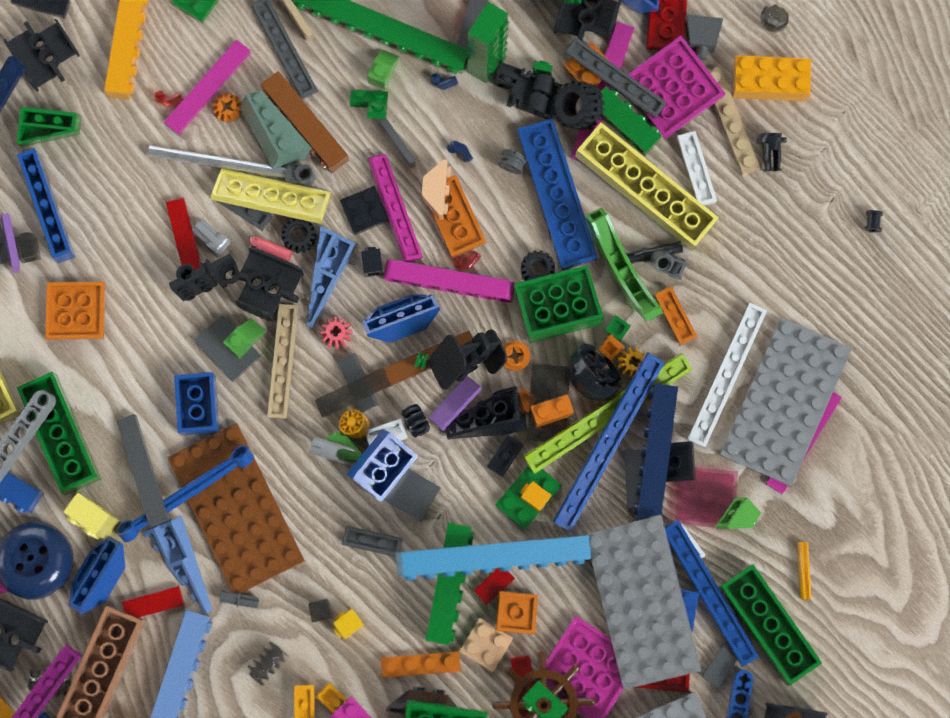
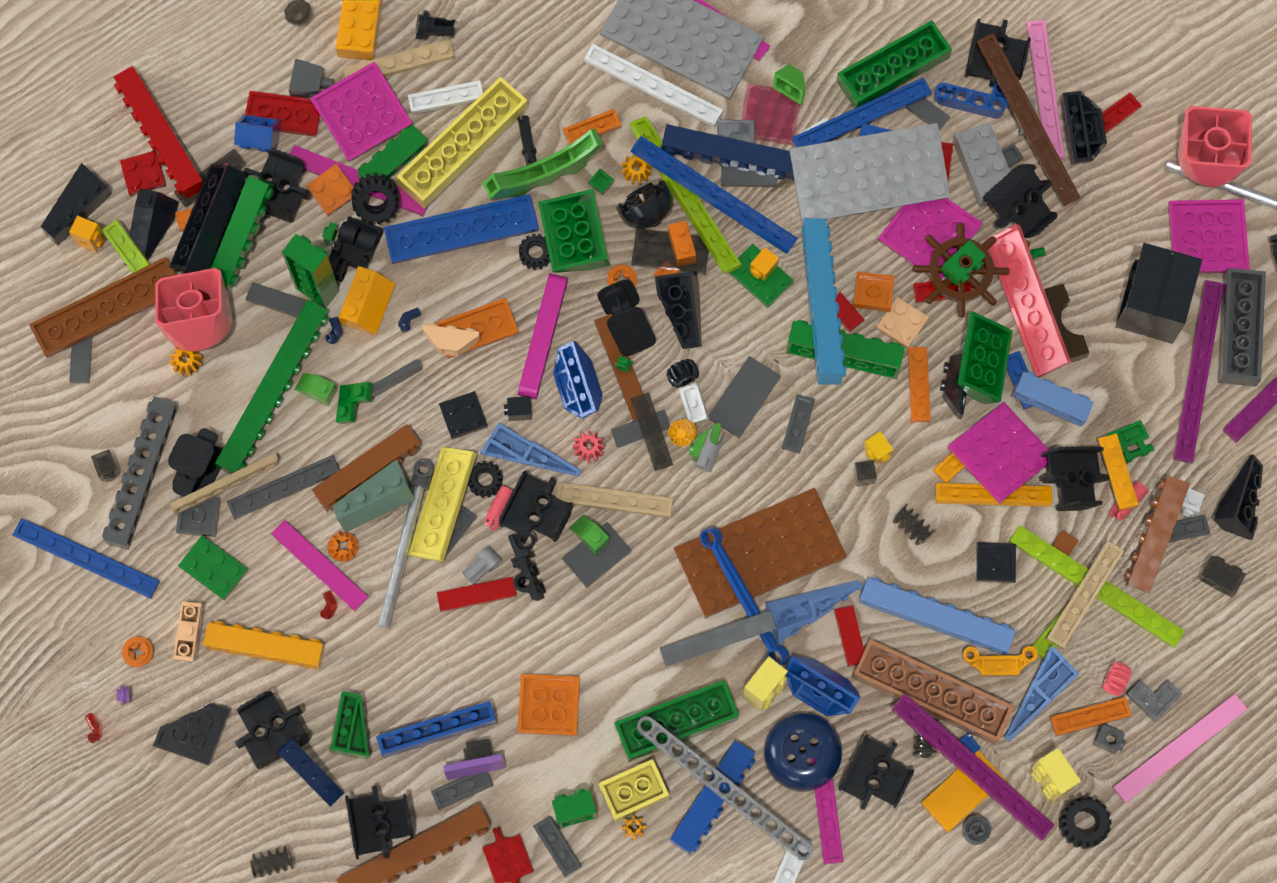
camera: 85 degrees left, 5 degrees down
(196, 404) = (654, 583): blue brick -> none
(239, 599) = (850, 552): dark grey axle -> none
(382, 465) = (727, 403): blue brick -> none
(395, 208) = (463, 384): dark pink tile -> none
(455, 403) = (668, 338): medium lavender tile -> none
(466, 263) = (525, 318): clear red arm -> none
(475, 108) = (366, 301): none -> light orange slope
(505, 456) = (721, 293): black plate -> none
(512, 161) = (425, 268): dark grey wheel -> none
(611, 347) = (620, 188): orange tile -> none
(615, 77) = (348, 162): dark grey tile -> none
(673, 265) = (540, 128): dark grey piece -> none
(804, 570) = (843, 33): light orange axle -> none

